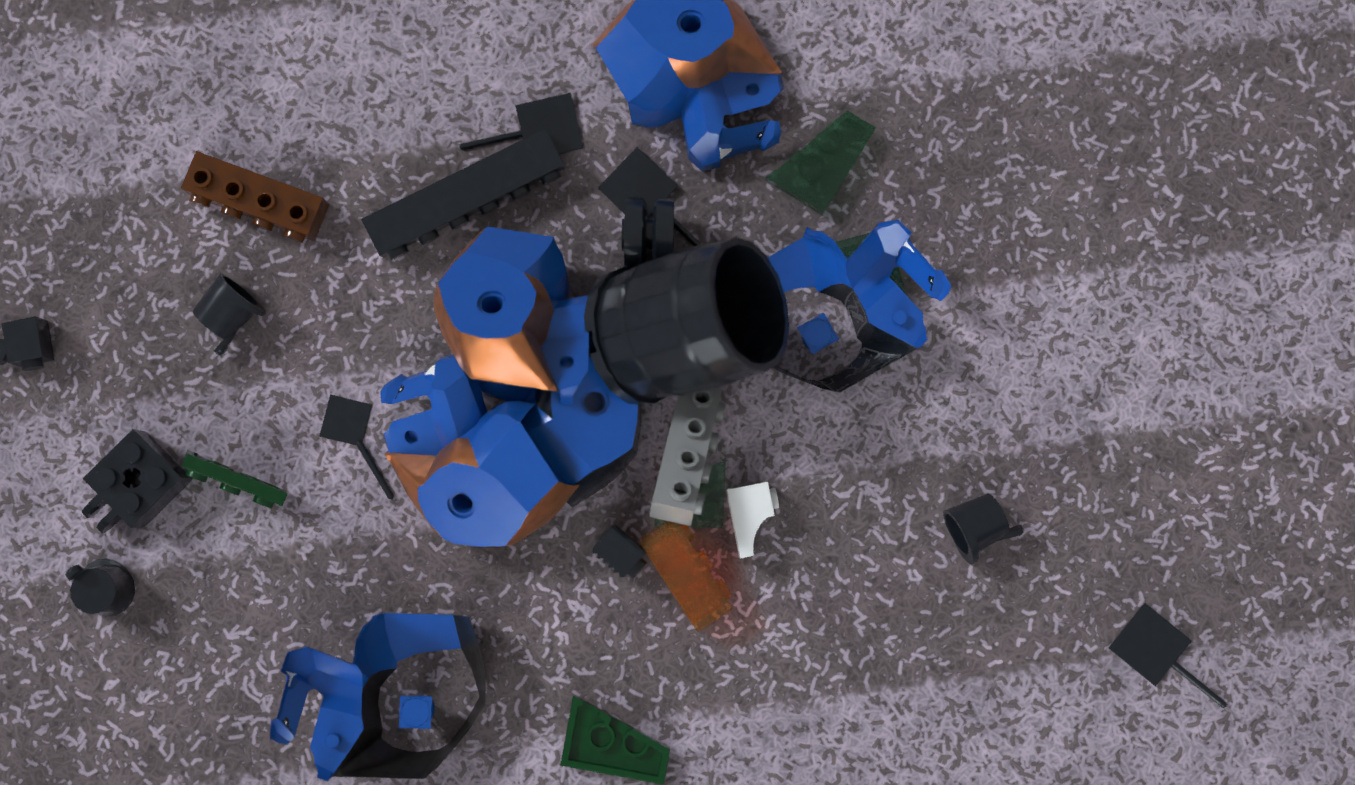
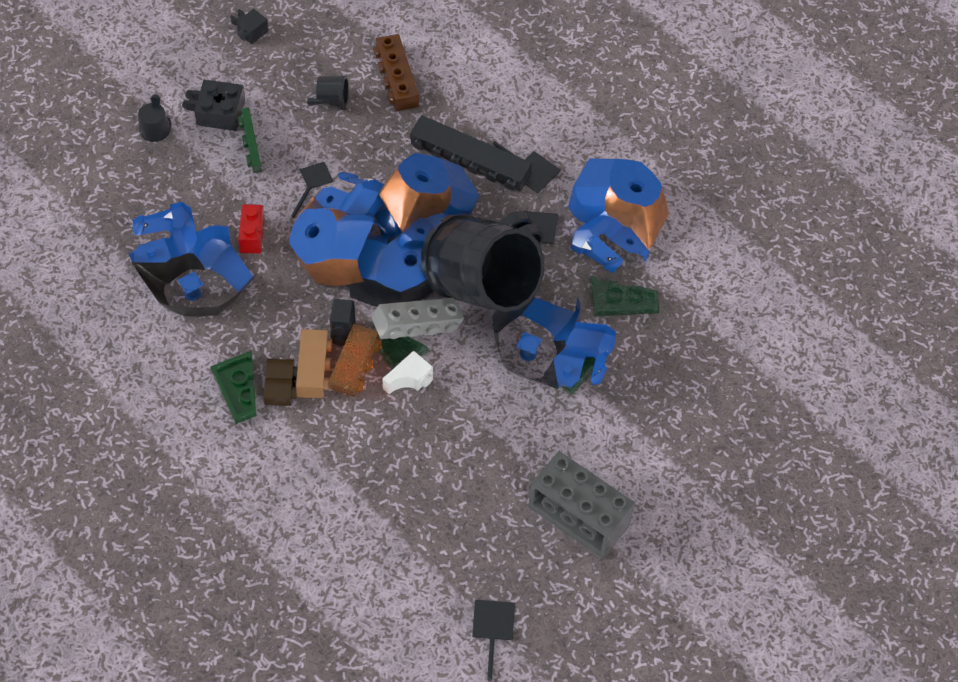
camera: 50 degrees right, 25 degrees down
(379, 570) = (251, 228): none -> red brick
(646, 688) = (280, 382): none -> dark brown brick
(648, 626) = (313, 363): none -> medium nougat brick
(978, 525) = (490, 484): black hat -> none
(1096, 439) = (581, 504): none -> dark grey brick

